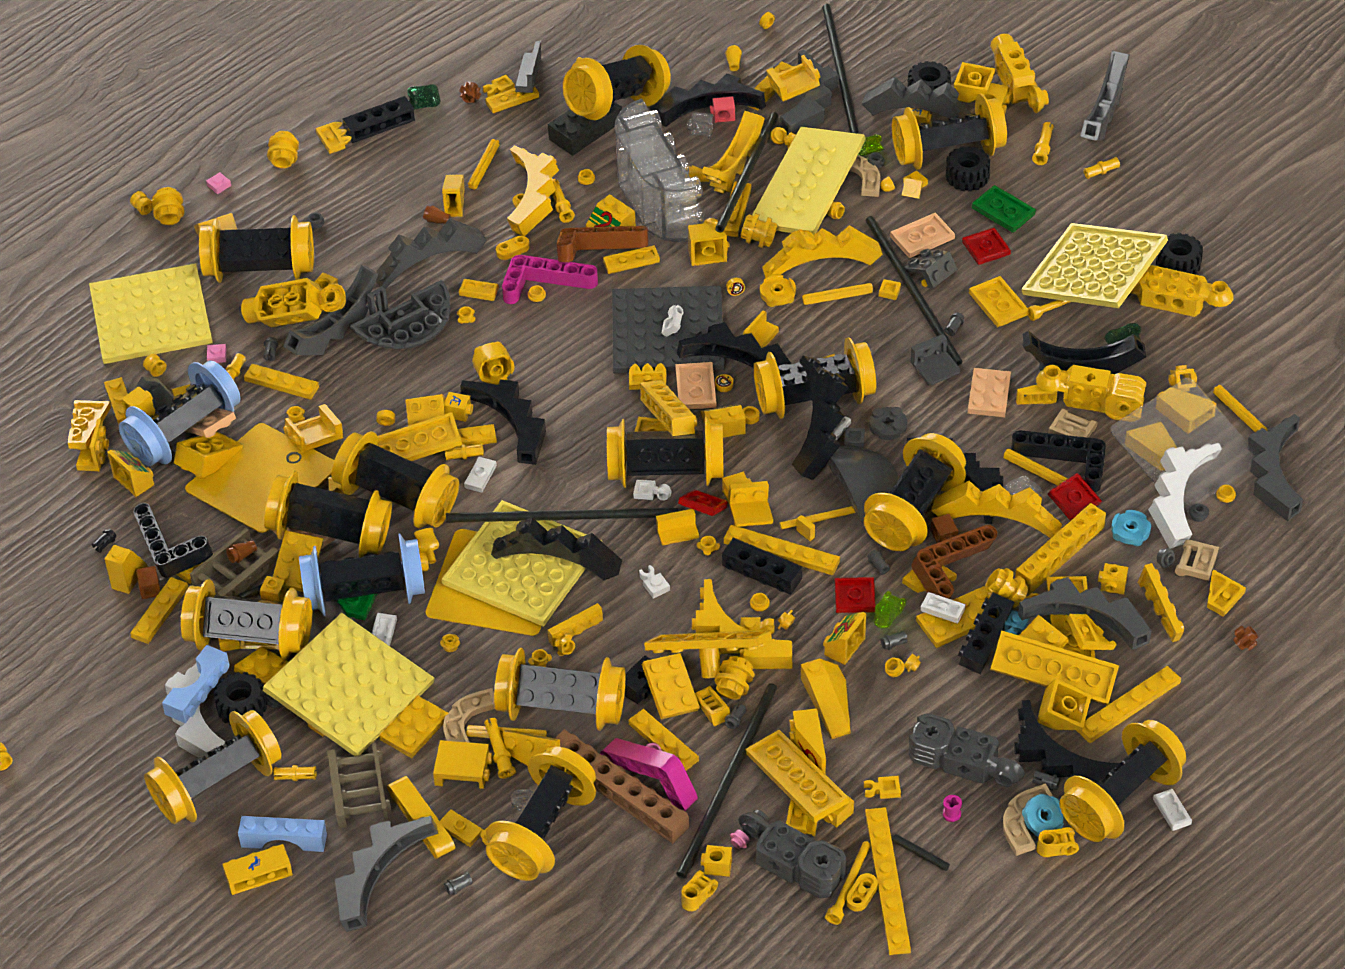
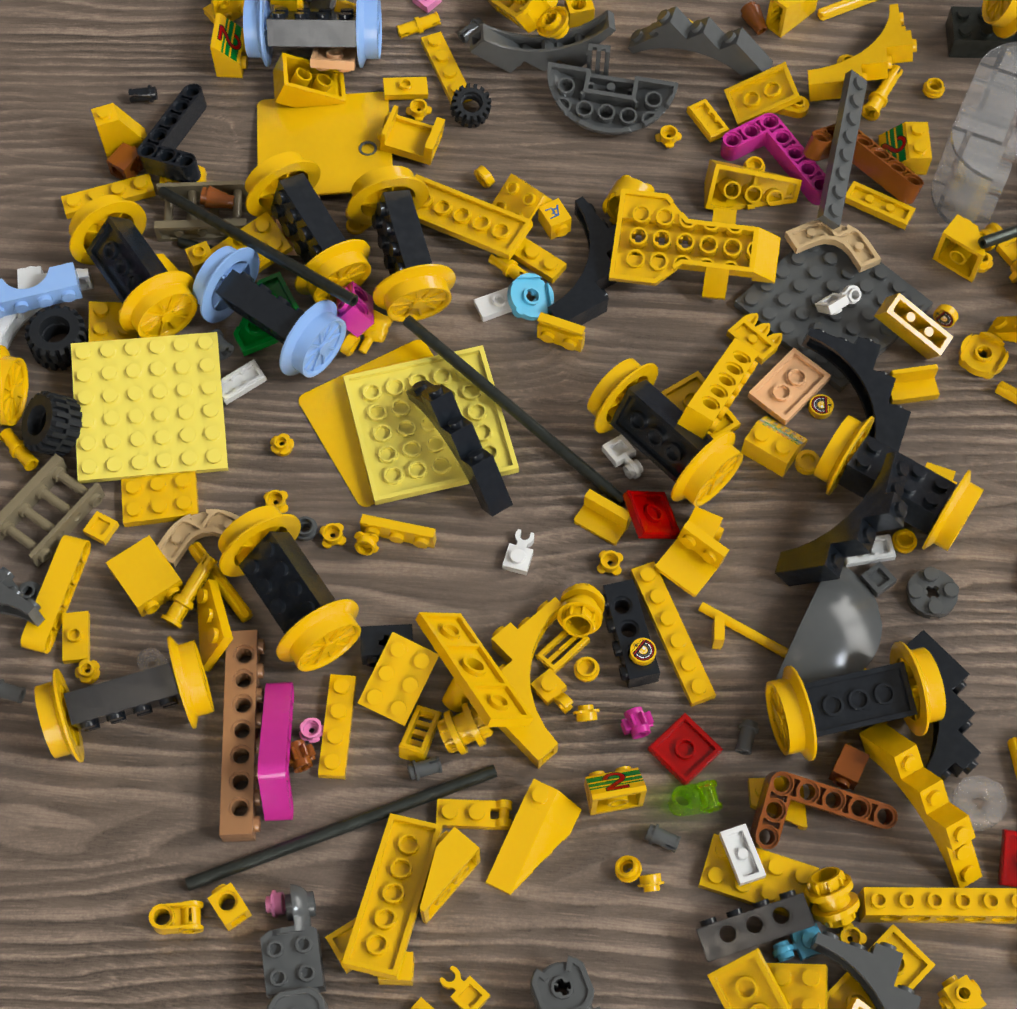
camera: 45 degrees right, 15 degrees up
(271, 410) = (405, 88): none -> yellow plate
(290, 736) = (51, 423): none -> black tyre
(308, 545) = (259, 246): none -> pearl dark grey piece
(331, 379) = (470, 117): none -> black tyre
(392, 531) = (357, 317): none -> dark pink brick
(401, 766) = (101, 528): none -> yellow plate
(485, 671) = (276, 495): none -> yellow plate
(489, 454) = (518, 301): none -> medium azure plate
(496, 251) = (762, 94): none -> yellow plate
(538, 457) = (560, 332): none -> yellow plate
(544, 309) = (746, 188): none -> yellow wedge
(573, 340) = (715, 247): none -> yellow piece
(583, 241) = (842, 150): none -> dark grey plate
(637, 287) = (846, 238): none -> tan plate
(725, 573) = (581, 610): none -> yellow piece
(728, 301) = (913, 326): none -> yellow brick
(734, 617) = (547, 663): none -> yellow tile
(780, 717) = (473, 814): none -> yellow plate
(782, 563) = (642, 651): none -> tile
(817, 601) = (637, 723): none -> dark pink gear
(847, 408) = (904, 541): none -> yellow plate

